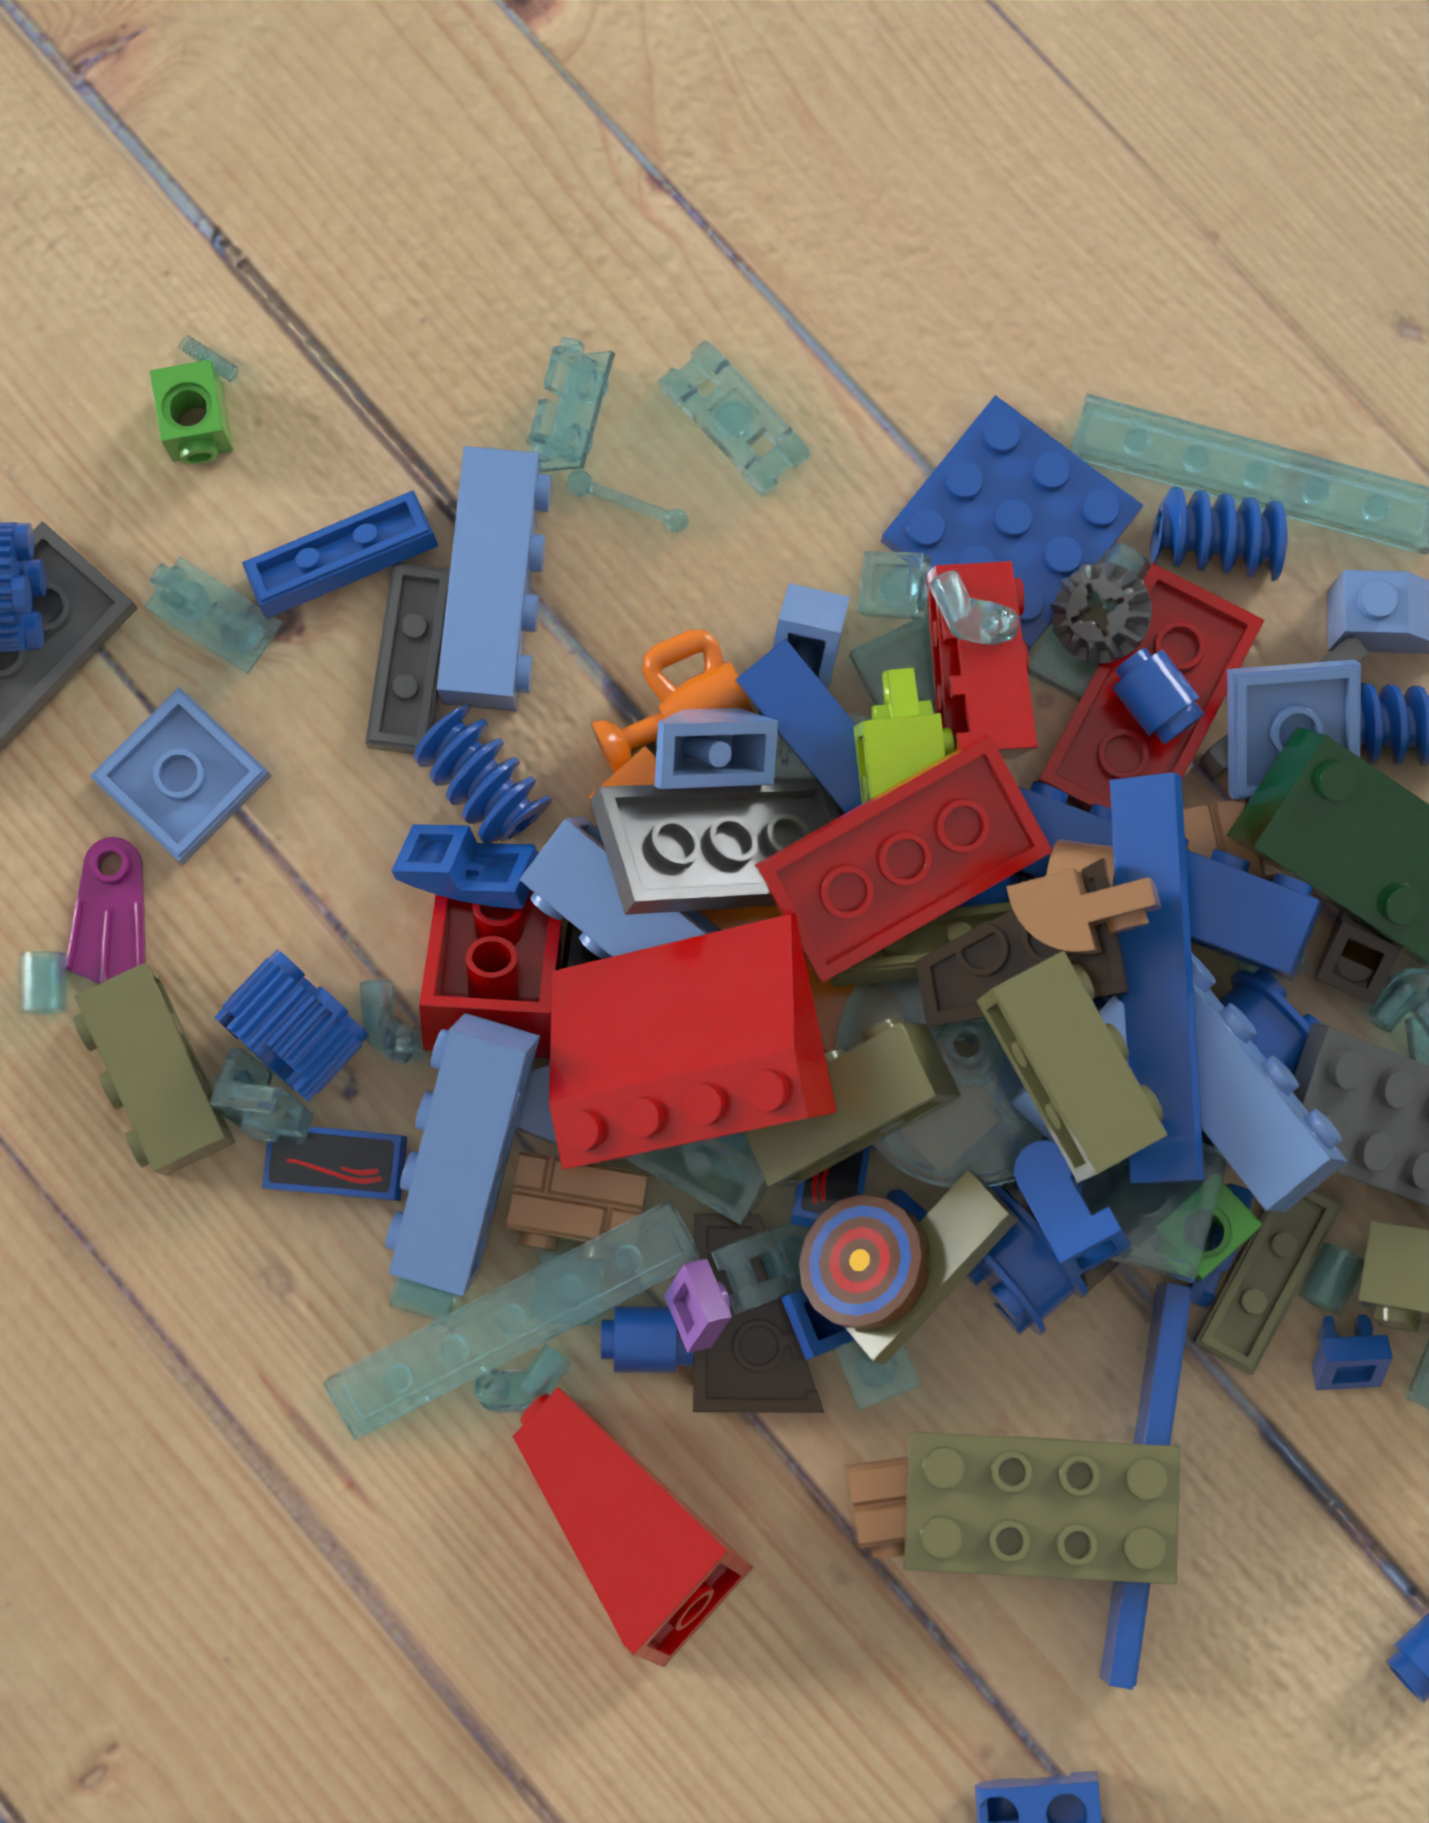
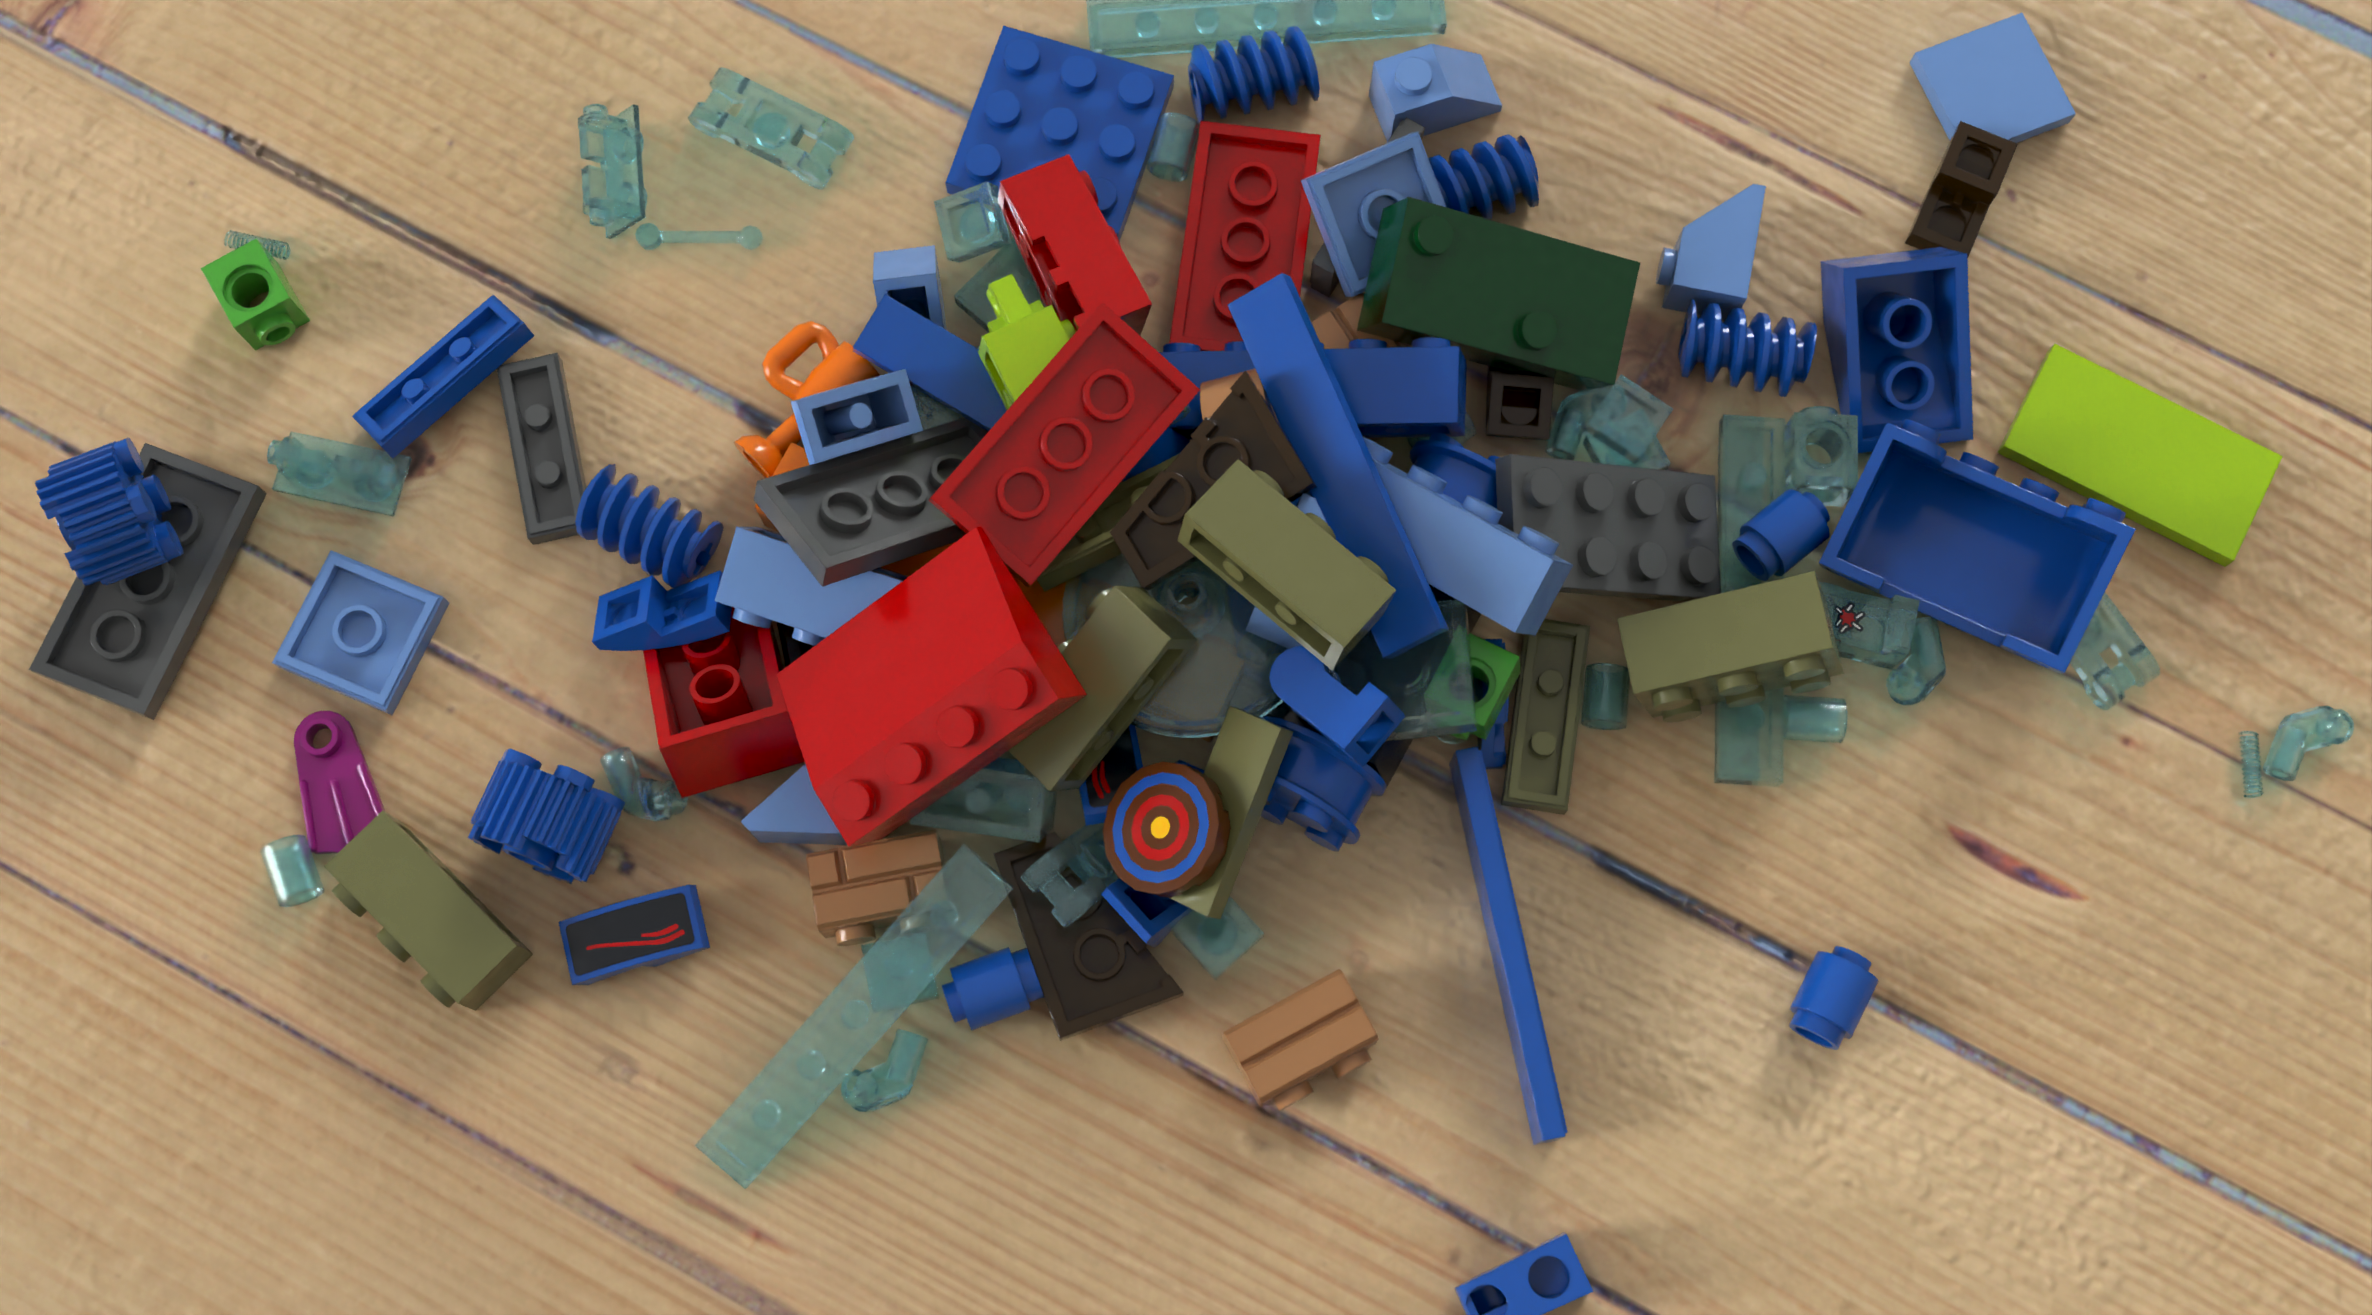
camera: 20 degrees left, 5 degrees down
(248, 1101) = (538, 903): clear light blue bracket -> none
(421, 1299) = (762, 1024): clear light blue hinge -> none
(461, 1154) = (750, 875): medium blue brick -> none
(491, 579) = (595, 347): medium blue brick -> none
(634, 1537) = (1050, 1176): red slope -> none
(698, 1305) = (1026, 932): medium lavender plate -> none
(970, 617) = (1048, 211): clear light blue arm -> none
(1042, 1507) = (1416, 997): olive plate -> none
(1060, 668) = (1155, 233): clear light blue tile -> none
(1065, 916) = (1229, 430): medium nougat brick -> none
(1126, 624) = (1195, 176): dark grey gear -> none
(1157, 694) = (1247, 230): blue brick -> none
(1352, 1360) = (1651, 761): blue tile -> none

